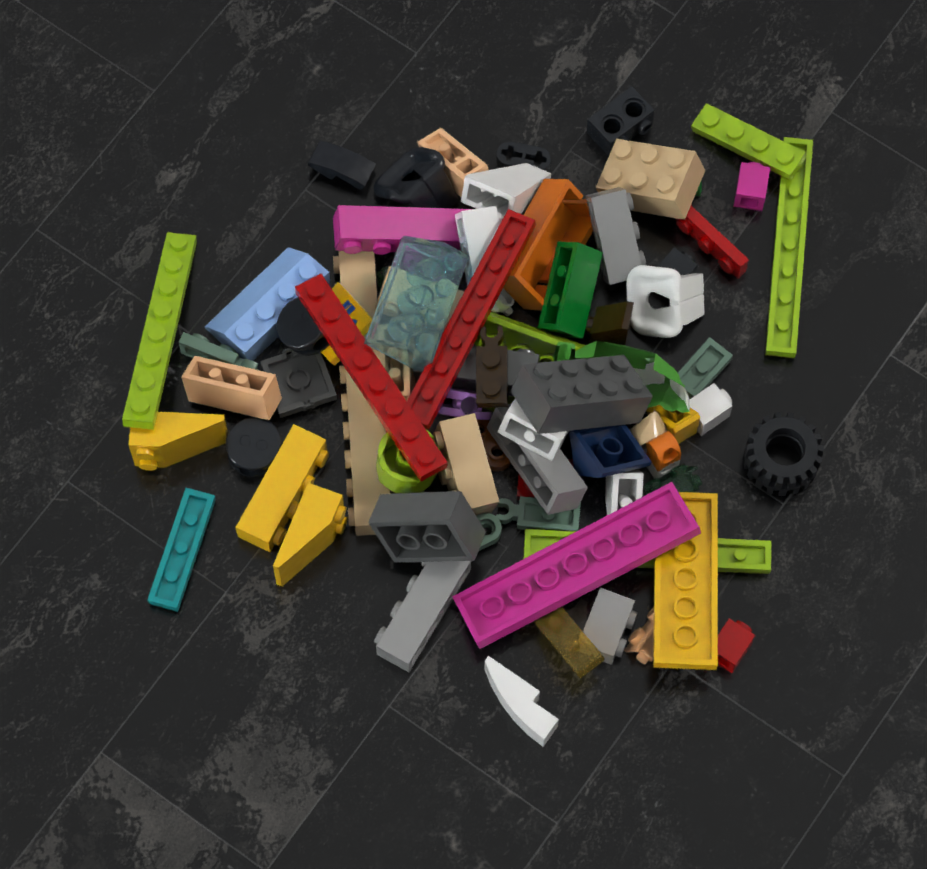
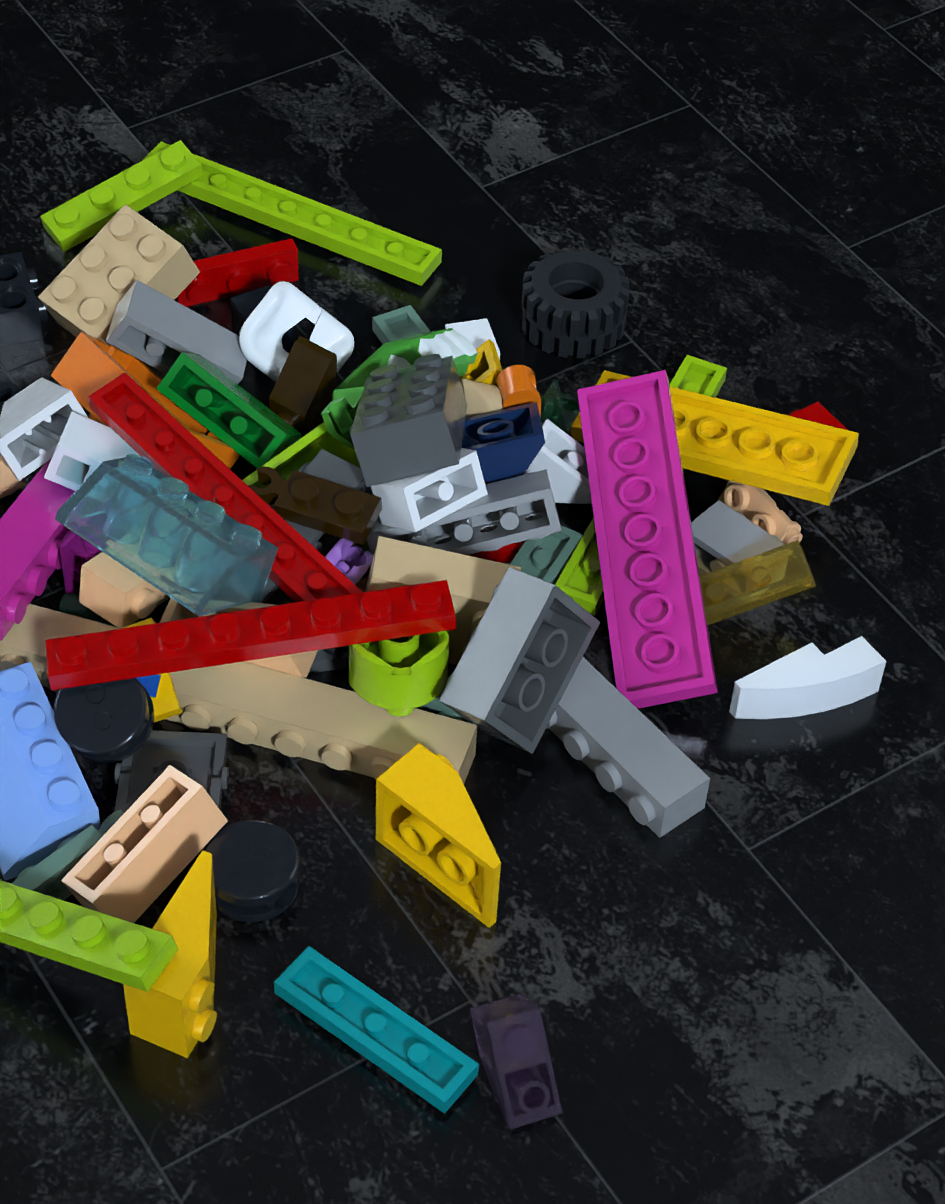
camera: 70 degrees left, 20 degrees down
(189, 625) = (517, 1059): none -> clear purple slope
(282, 488) = (346, 857): yellow brick -> none
(751, 186) = (186, 214): dark pink brick -> none

